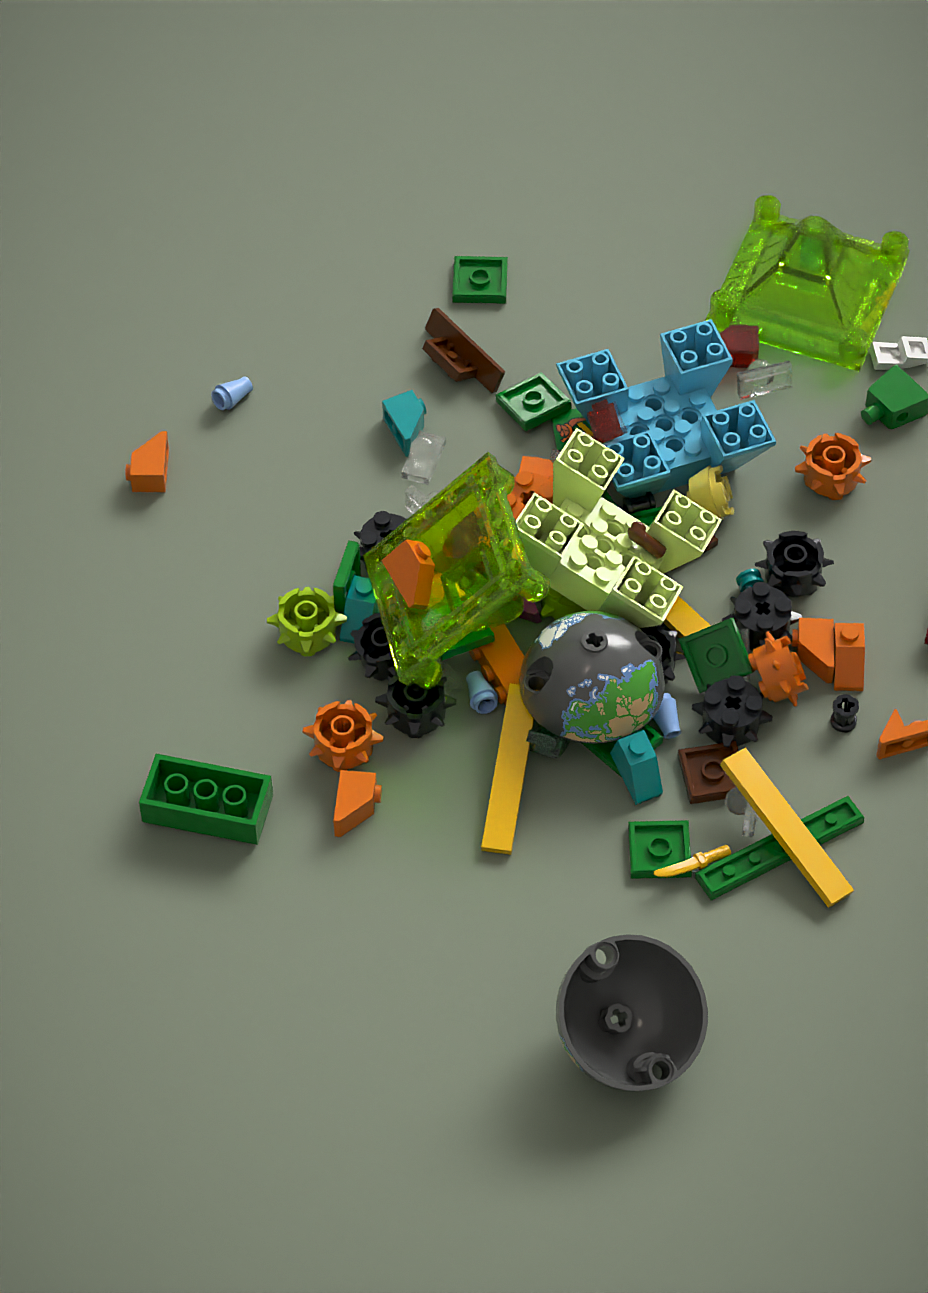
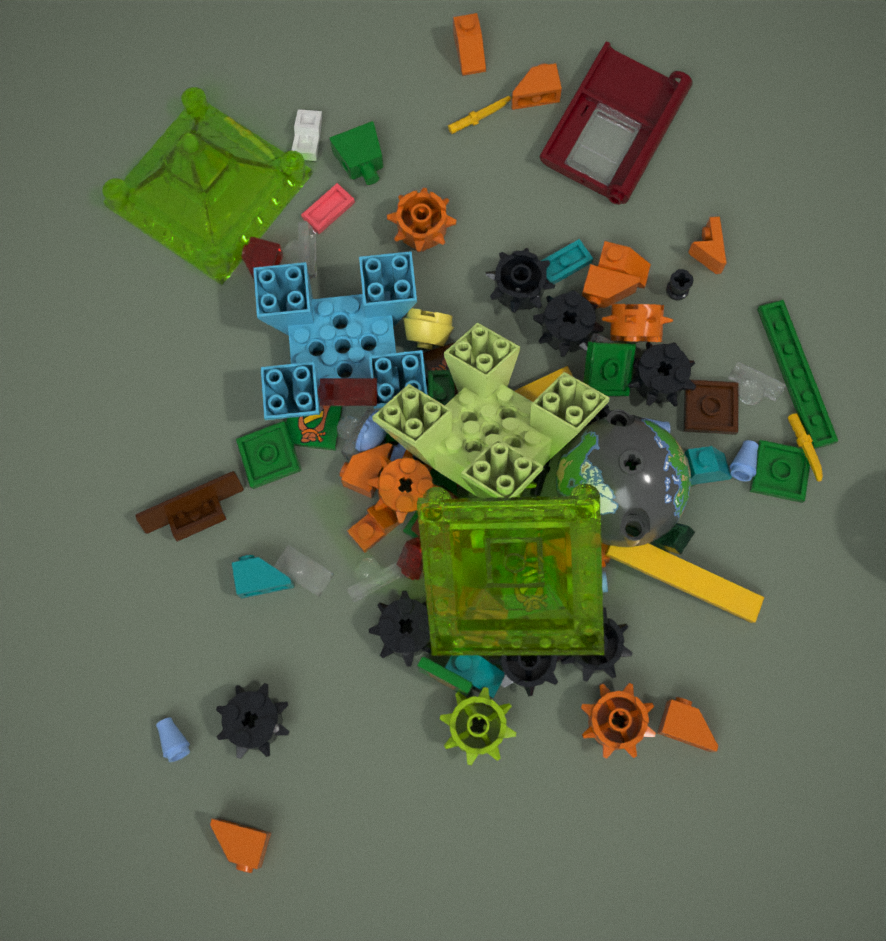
camera: 75 degrees left, 20 degrees up
(206, 798) = (664, 869): green brick -> none
(265, 445) = (266, 727): none -> black brick
(412, 572) = (490, 614): orange slope -> none
(480, 279) = (103, 468): green tile -> none
(638, 535) = (497, 391): reddish brown arm -> none
(658, 809) = (745, 462): none -> light blue cone
(748, 578) = (524, 322): teal bush -> none
(787, 827) = (793, 361): yellow tile -> none
(822, 391) = (328, 208): none -> coral tile
(833, 604) = (567, 261): none -> teal plate

